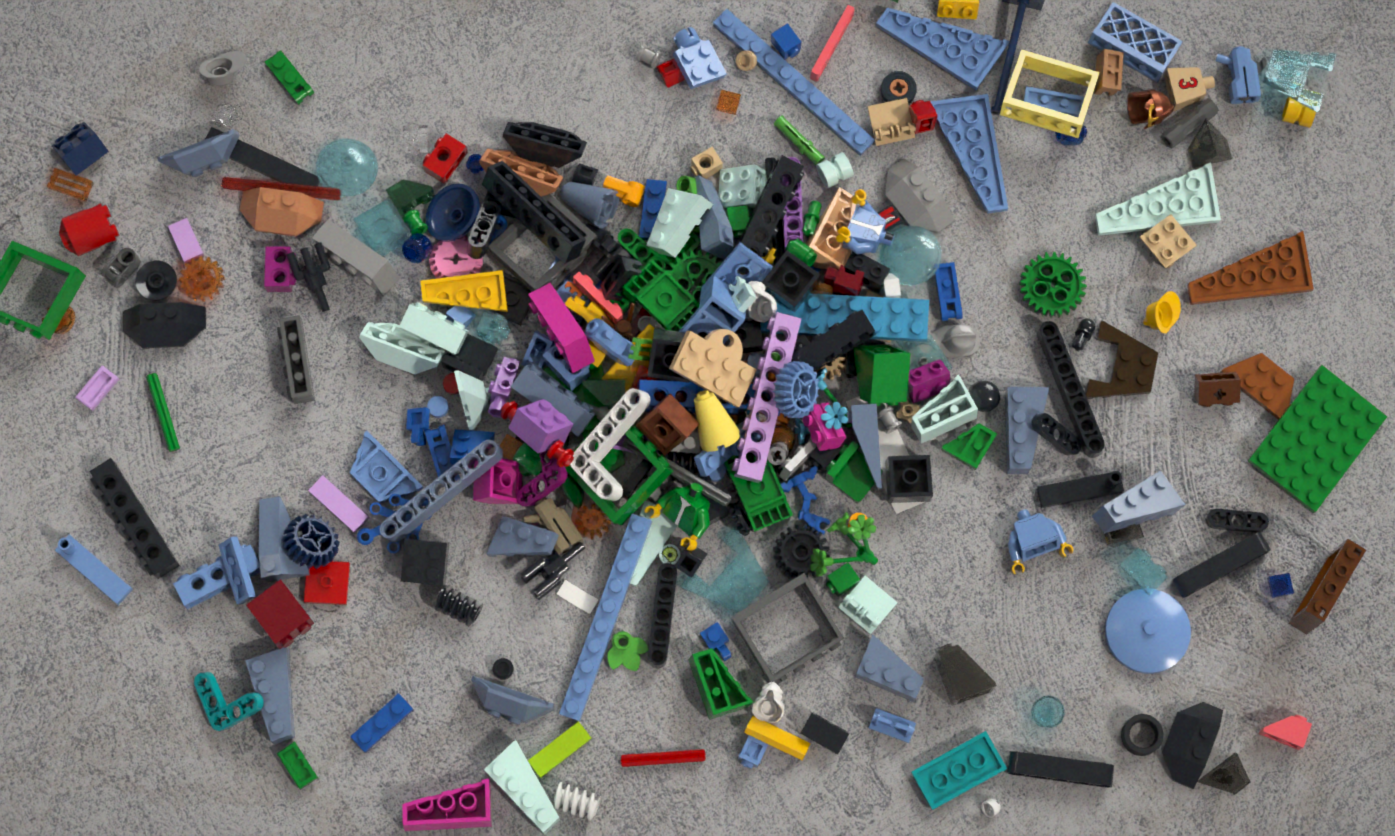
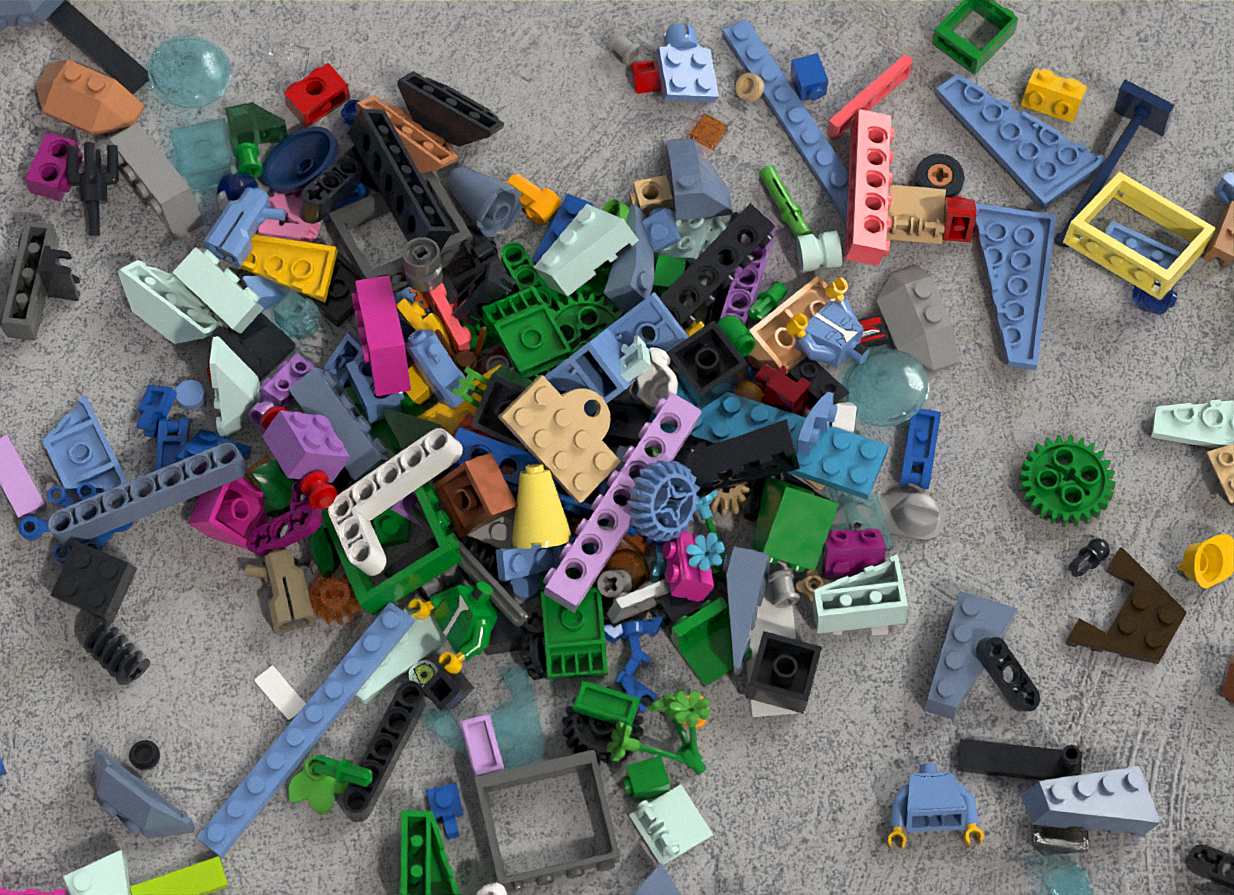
camera: 20 degrees right, 10 degrees down
(312, 191) = (133, 85): clear red axle -> none
(316, 353) = (57, 278): none -> black hinge
(429, 274) = (239, 223): none -> medium blue piece
(521, 538) = (233, 591): sand blue wing -> none
(550, 570) = (255, 644): black plant -> none
(573, 270) = (422, 264): none -> dark grey wheel
(585, 174) = (490, 165): black slope -> none
(642, 639) = (342, 771): none -> green axle
(723, 187) = (661, 228): none -> medium blue bracket
(727, 593) = (482, 745): none -> lavender tile
(734, 146) = (695, 182): none -> sand blue wedge
(800, 538) = (606, 704): none -> green tile
(837, 70) = (868, 188): none -> coral brick
(878, 298) = (816, 421): none -> medium blue slope
(971, 445) = (885, 657): green wing -> none
(985, 395) = (926, 597): black hair -> none
(1071, 379) = (1048, 636): black beam -> none

